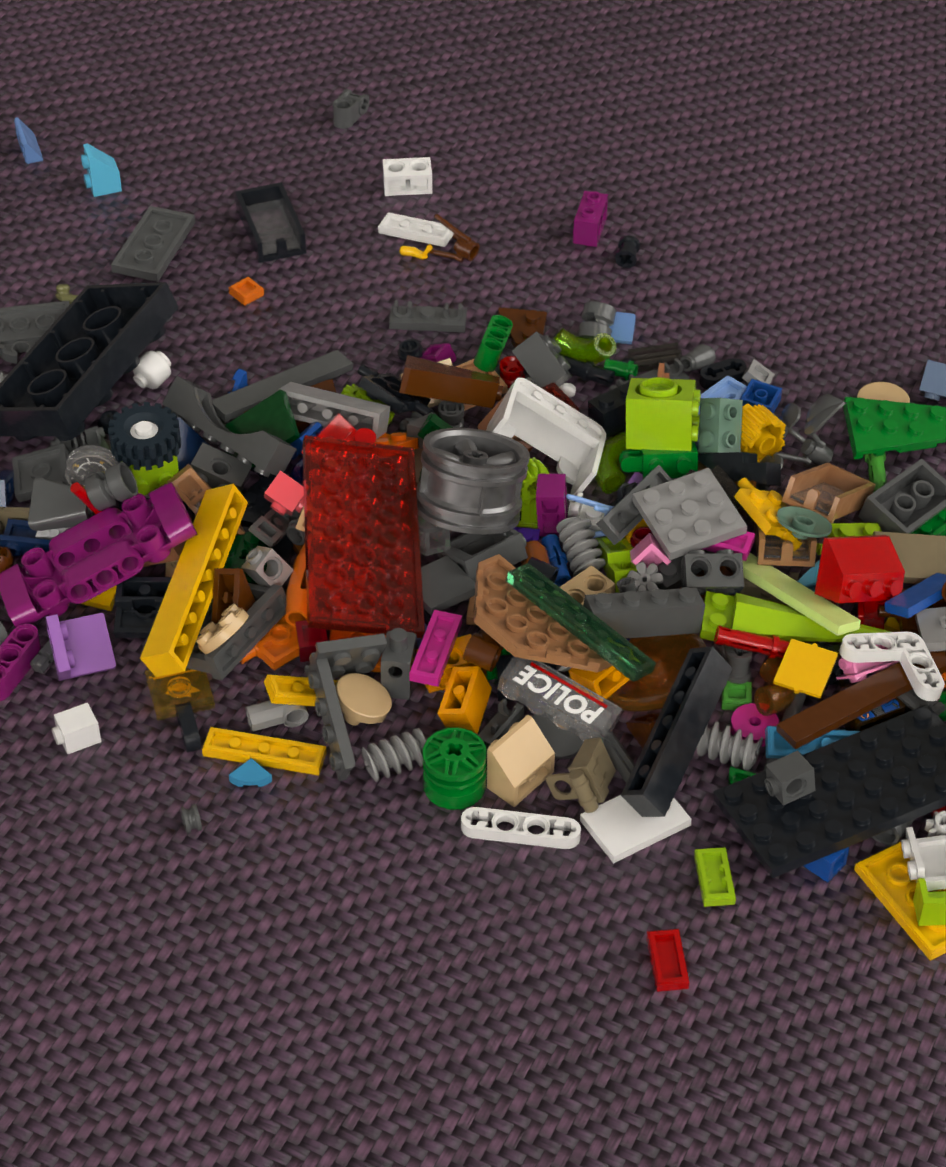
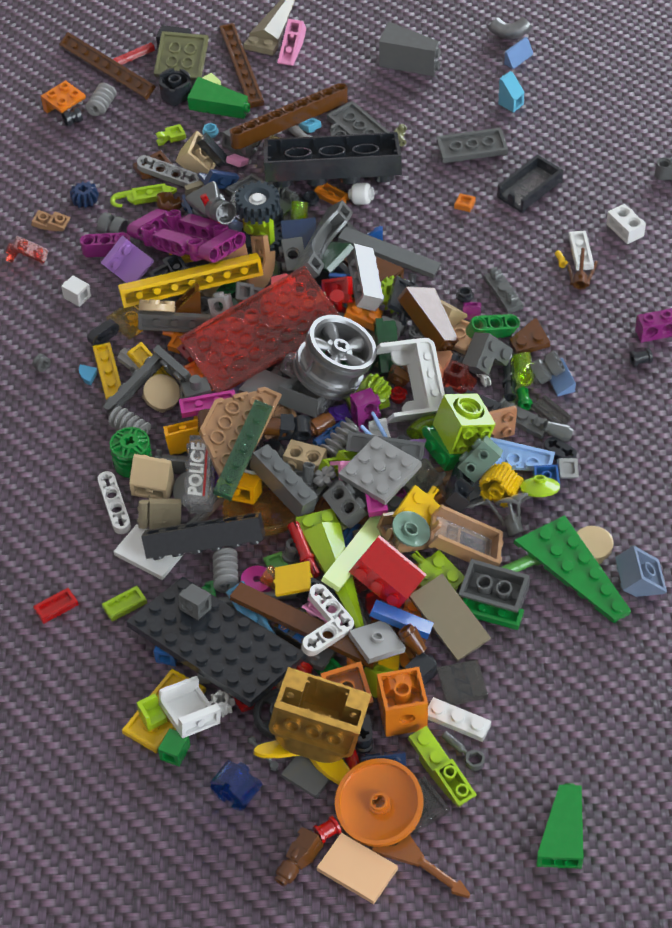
camera: 65 degrees right, 5 degrees up
(121, 398) = (329, 196): none -> orange tile
(788, 399) = (540, 486): none -> lime dish

